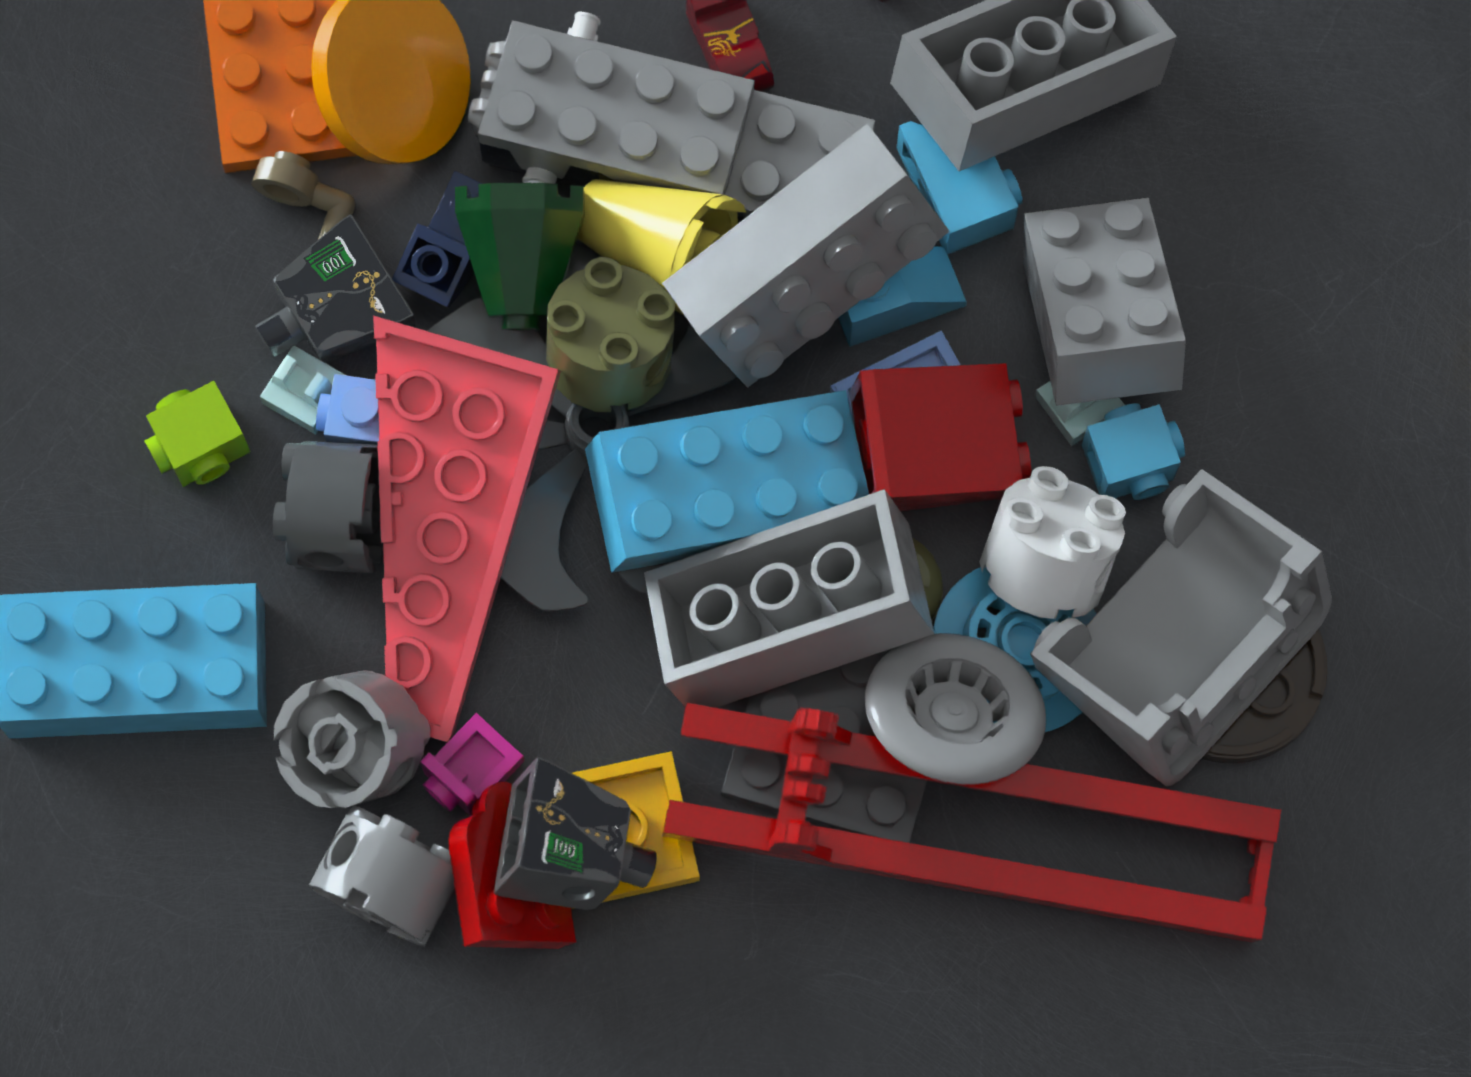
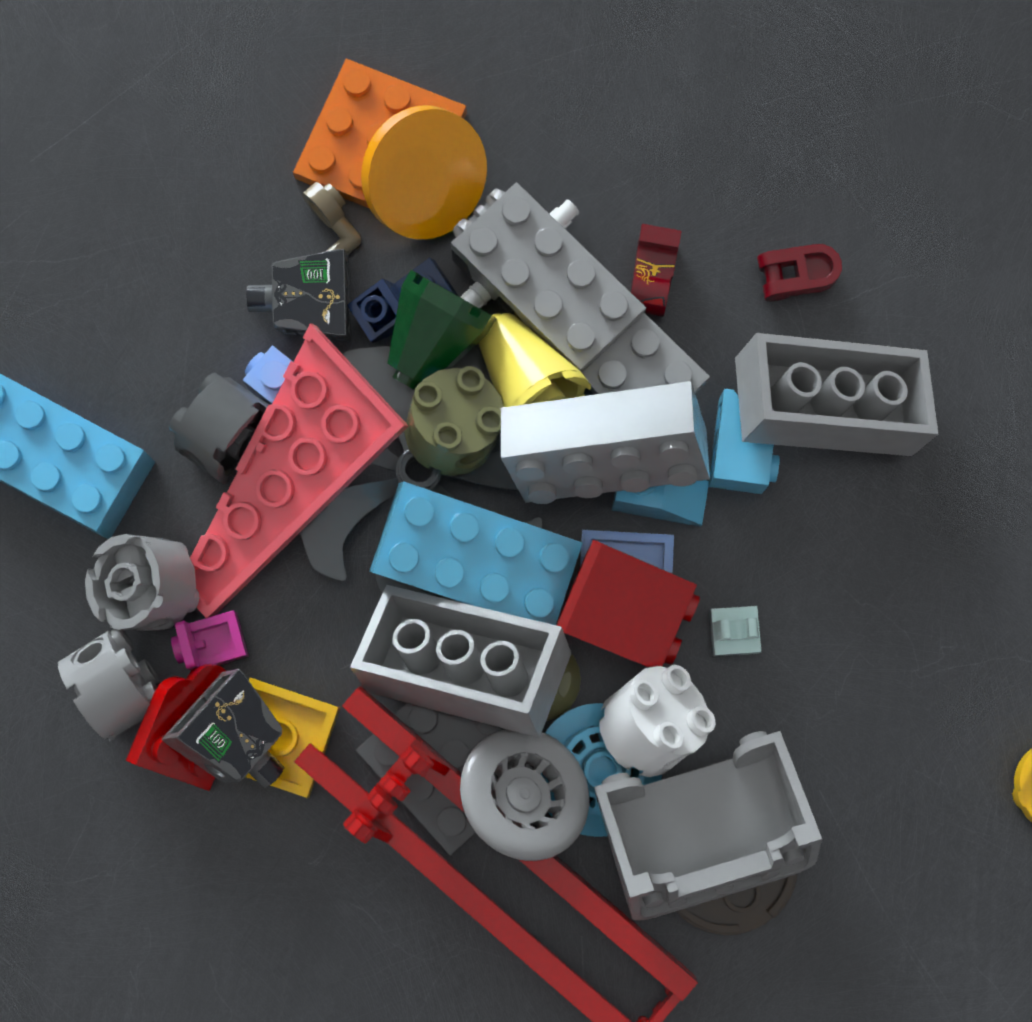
camera: 30 degrees right, 5 degrees up
(195, 435) = (172, 333): lime brick -> none
(298, 386) = (256, 336): light aqua tile -> none
(1103, 301) = (785, 580): light grey brick -> none
(1133, 451) = (748, 686): medium azure brick -> none

